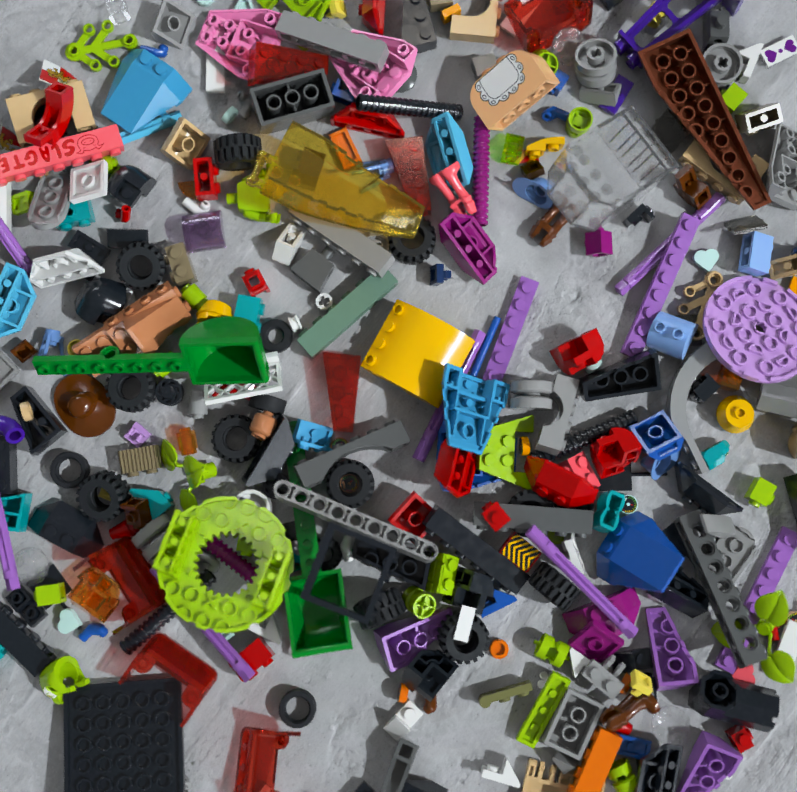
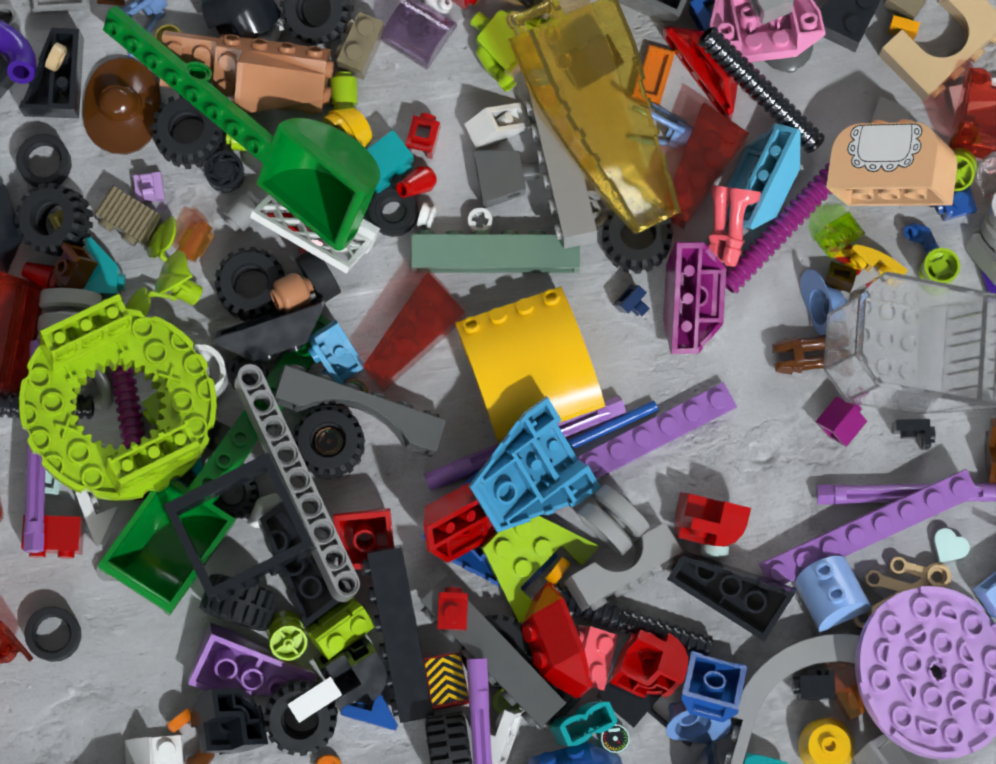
camera: 40 degrees right, 5 degrees down
(275, 309) = (417, 182): none -> red cone

